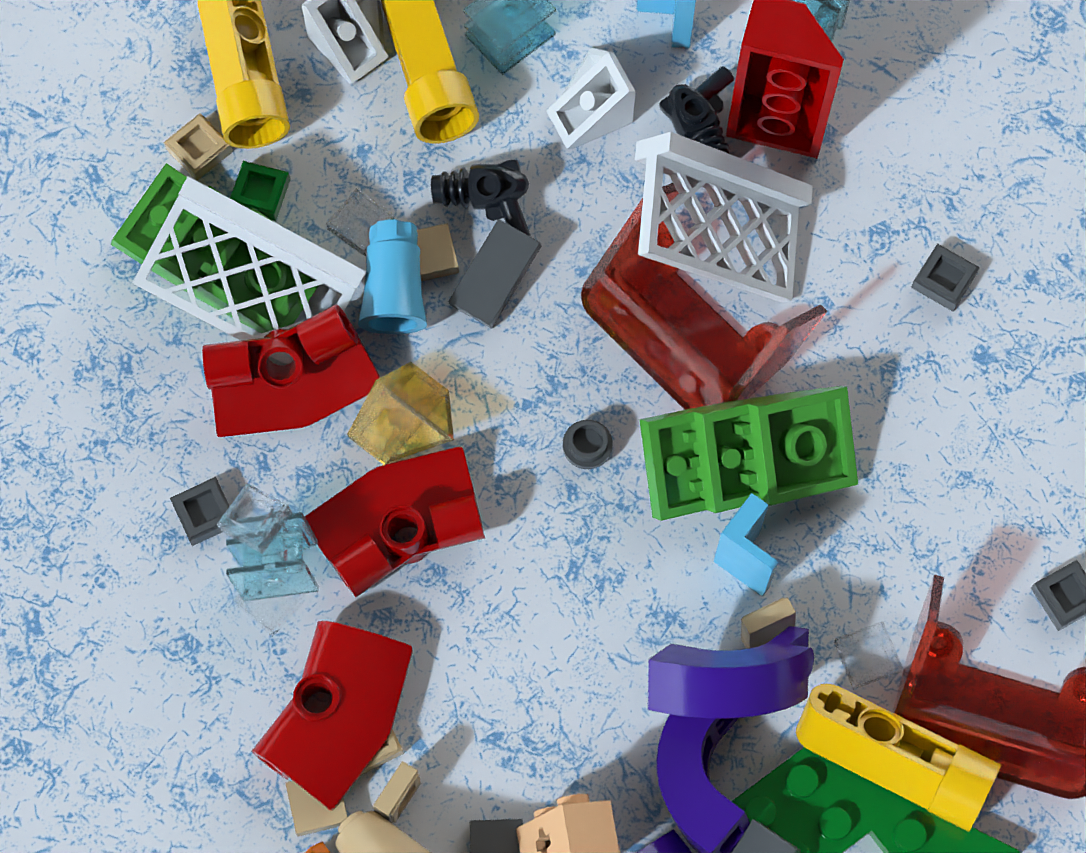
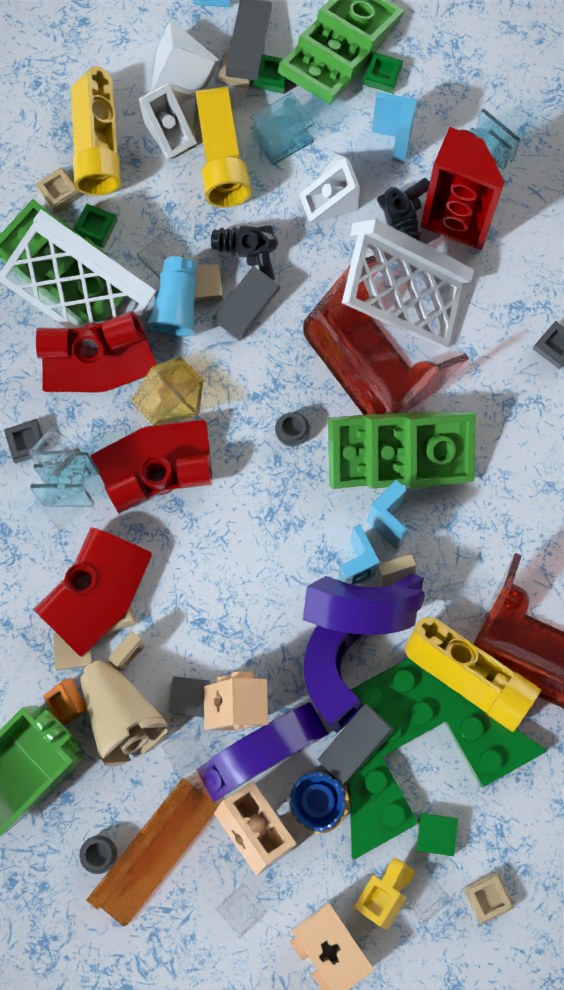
camera: 10 degrees right, 5 degrees up
(723, 615) = (364, 565): none -> medium azure panel

